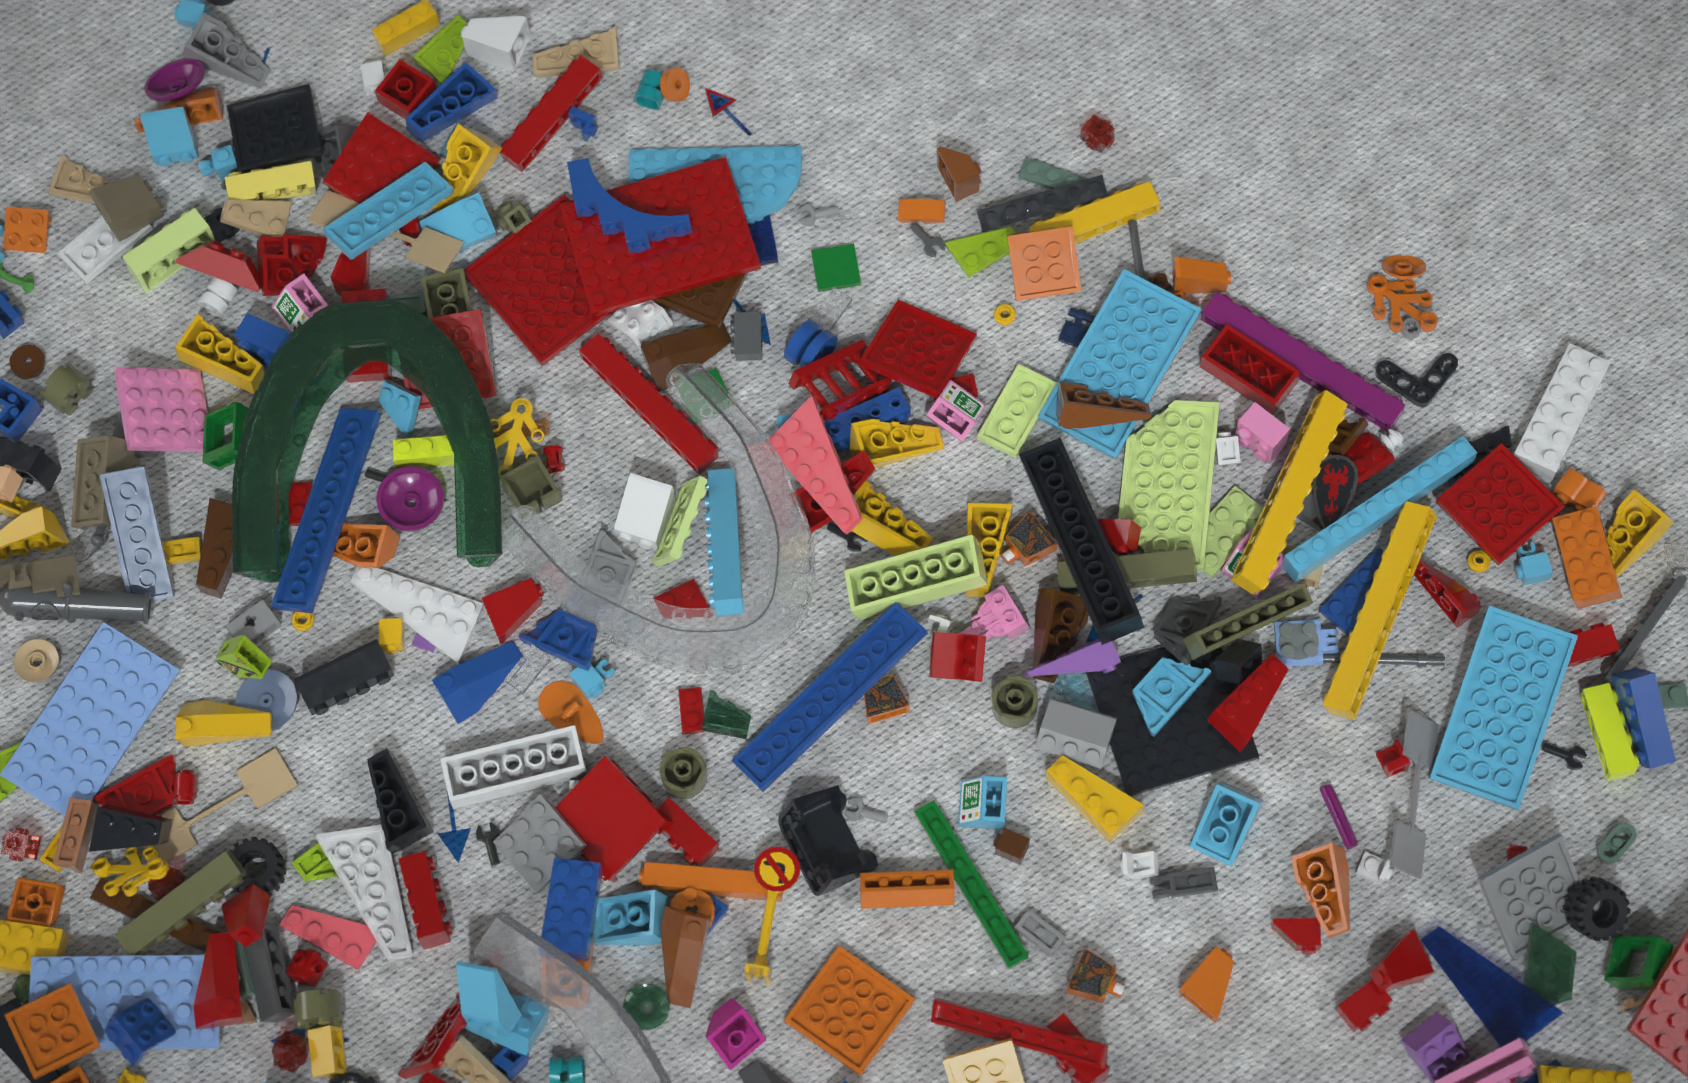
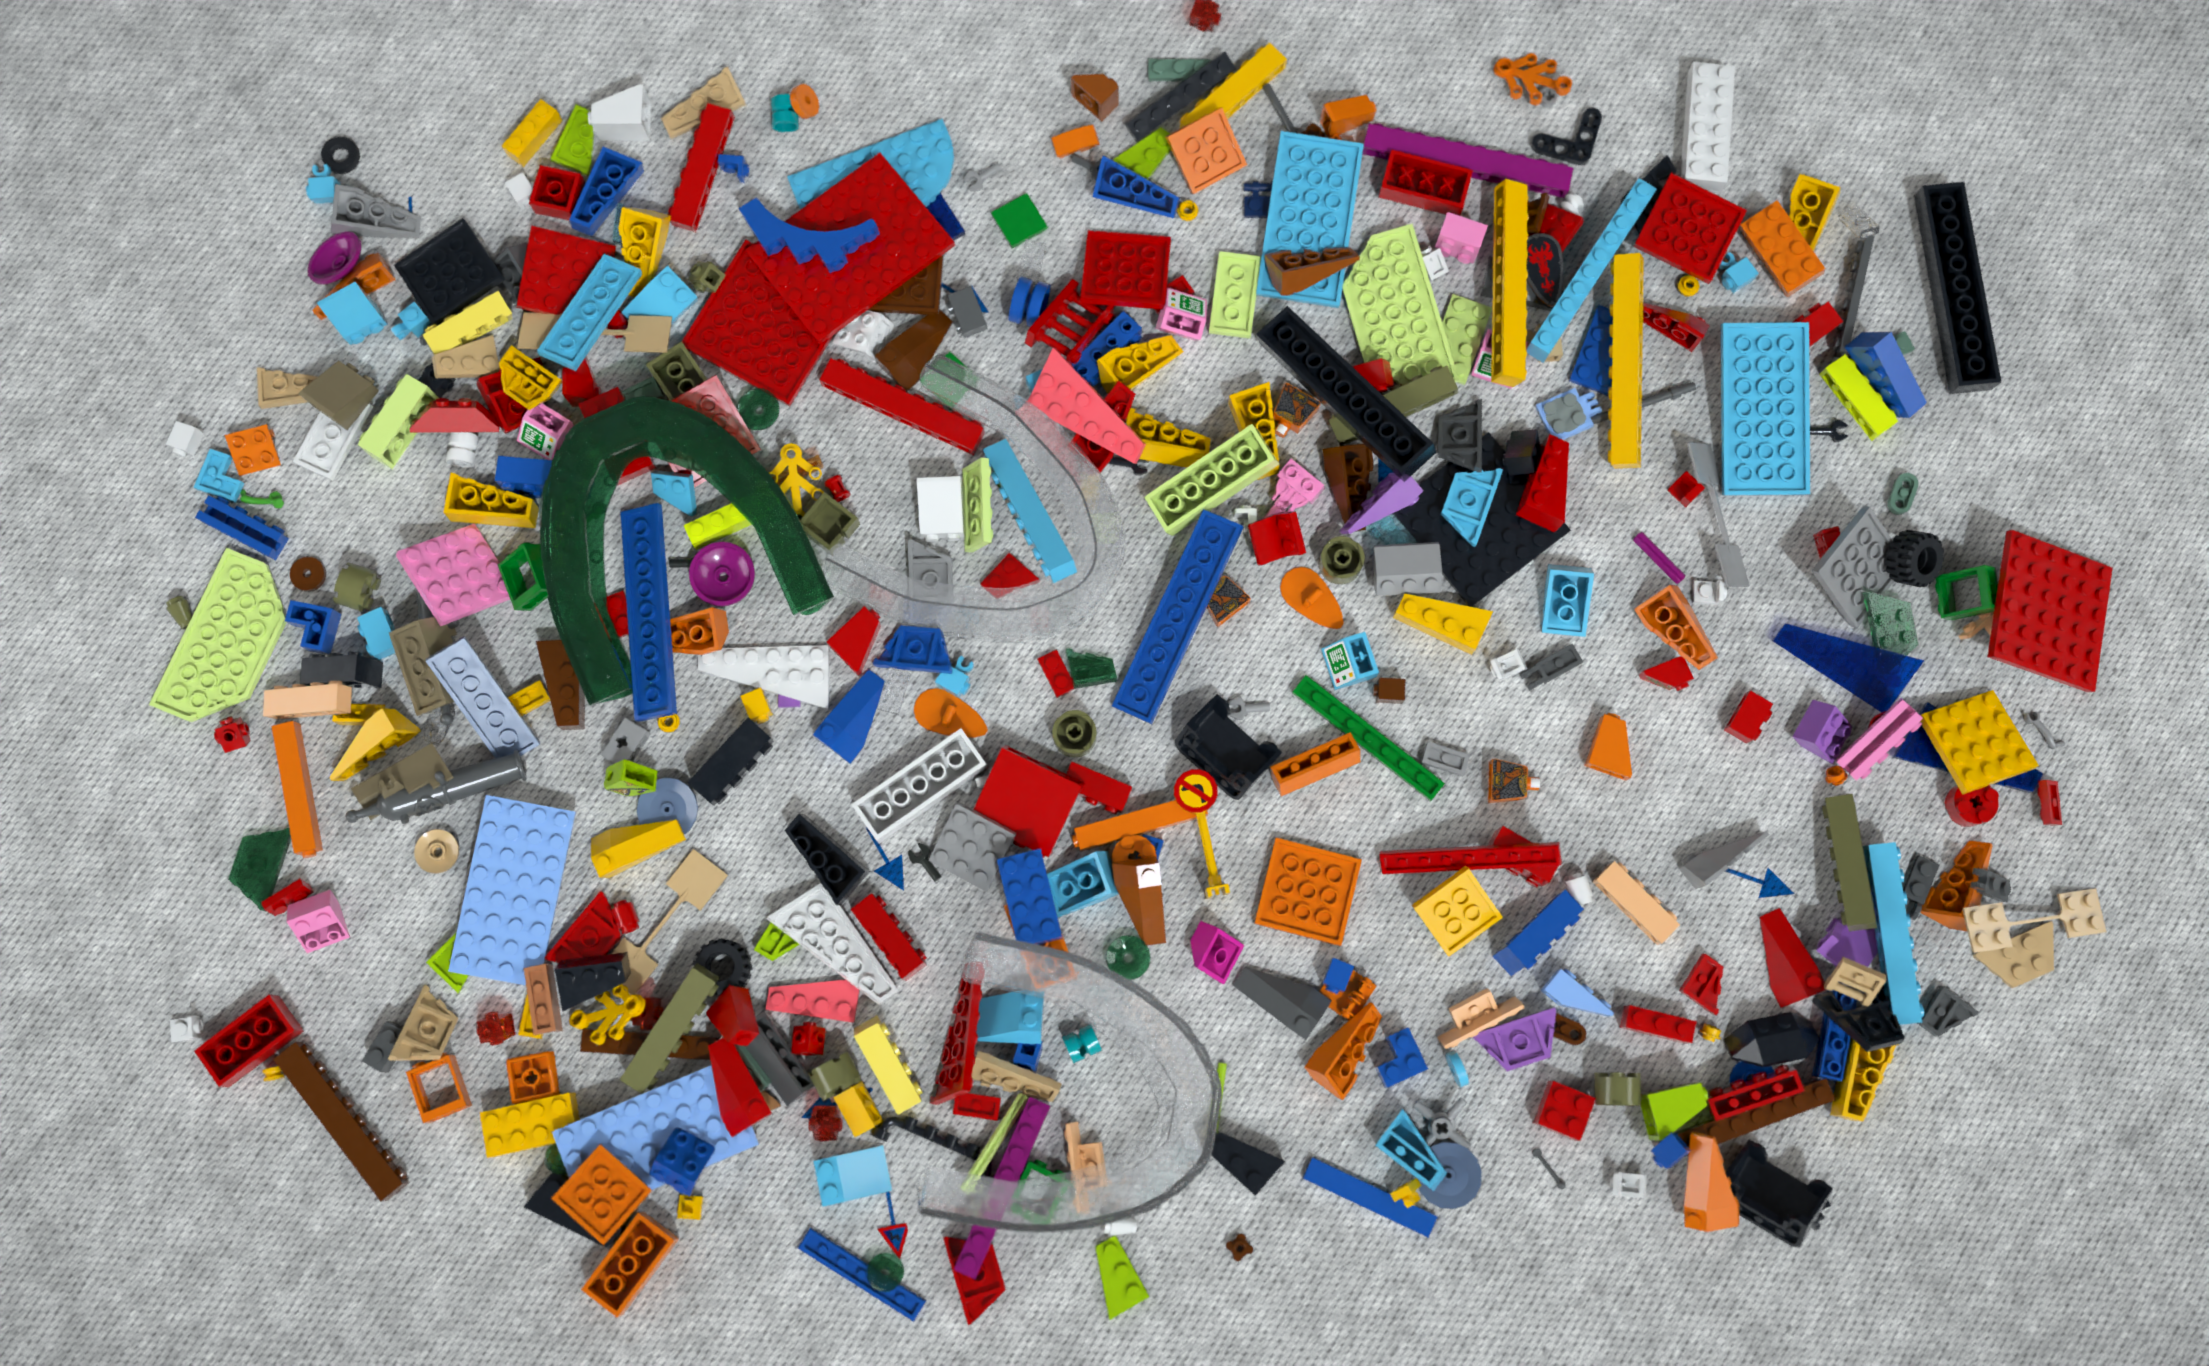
camera: 25 degrees left, 10 degrees up
(66, 434) = (376, 628): none -> medium azure brick
(303, 252) = (526, 379): none -> yellow wedge
(372, 1020) = (887, 1065): none -> light yellow wedge
(486, 1000) = (989, 1014): medium azure slope -> none
(505, 349) = (756, 399): none -> clear green dish
(719, 103) = (851, 104): piece -> none
(953, 273) = (1128, 188): none -> blue wedge
(972, 729) = (1311, 597): none -> orange shield
(1247, 621) = (1518, 413): olive brick -> none
(1402, 964) = (1767, 668): red slope -> none
(1403, 266) = (1521, 43): orange dish -> none
(1578, 491) = (1751, 193): orange brick -> none

